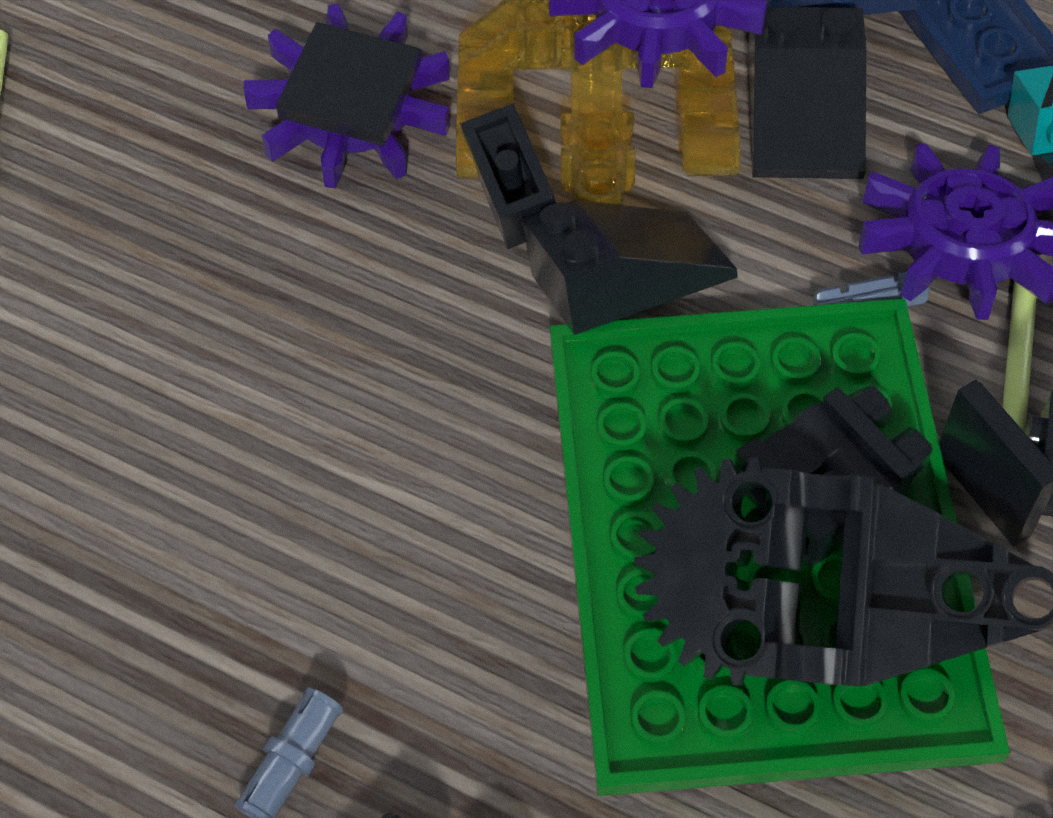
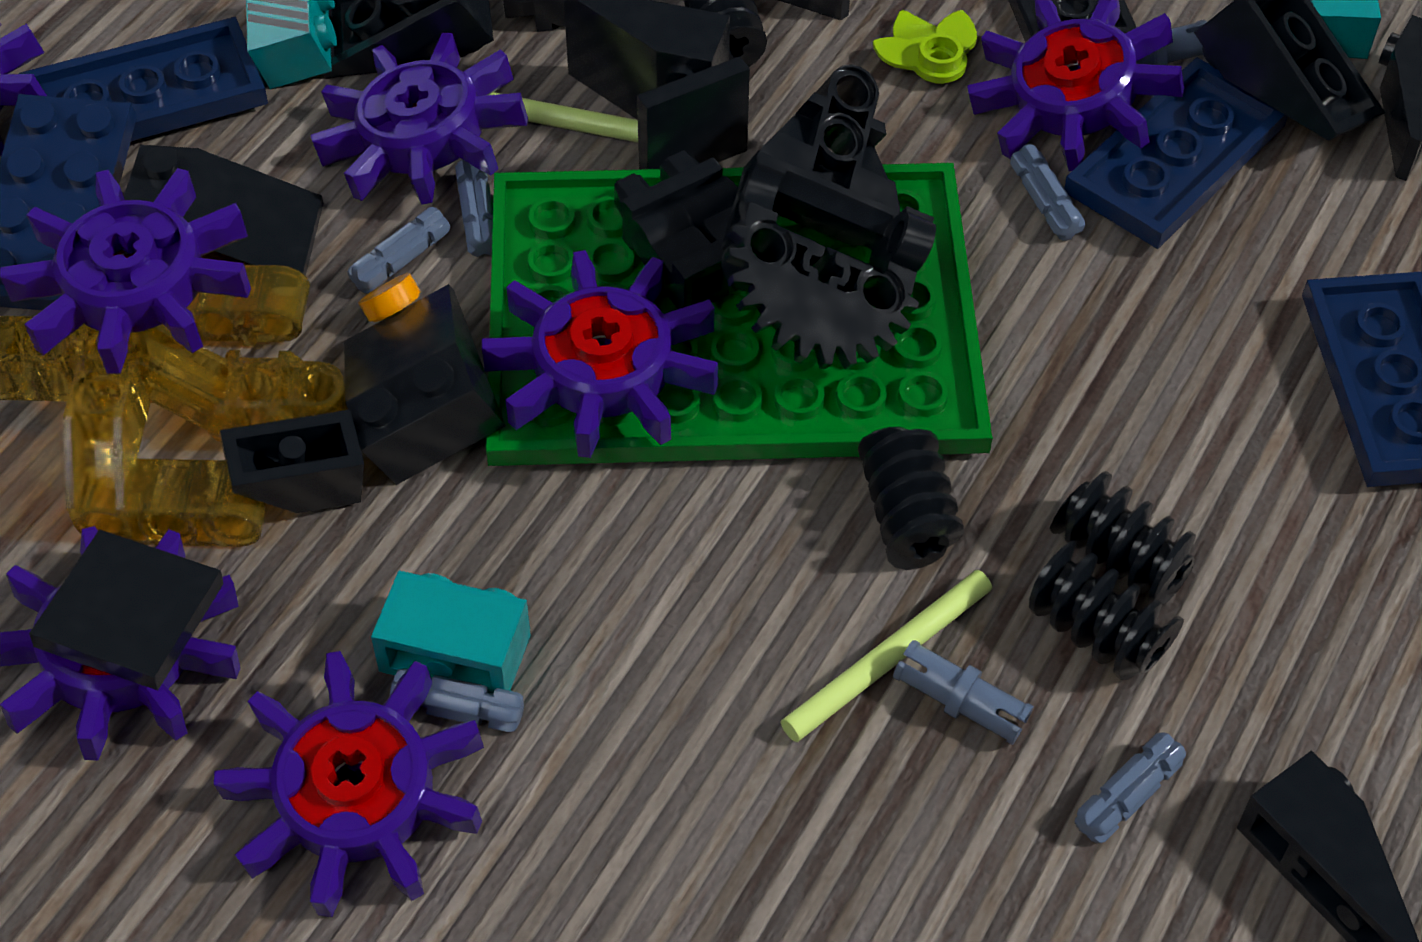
camera: 90 degrees left, 5 degrees down
(209, 269) = (332, 814): none -> dark purple gear
(296, 339) = (470, 701): none -> sand blue axle
(342, 690) = (885, 656): none -> yellowish green bar
(352, 323) = (452, 630): none -> teal brick
(518, 702) = (910, 495): none -> black piece
(655, 396) = (602, 352): none -> dark purple gear
(732, 234) = (390, 298): none -> light orange tile
(802, 239) = (398, 249): none -> sand blue axle

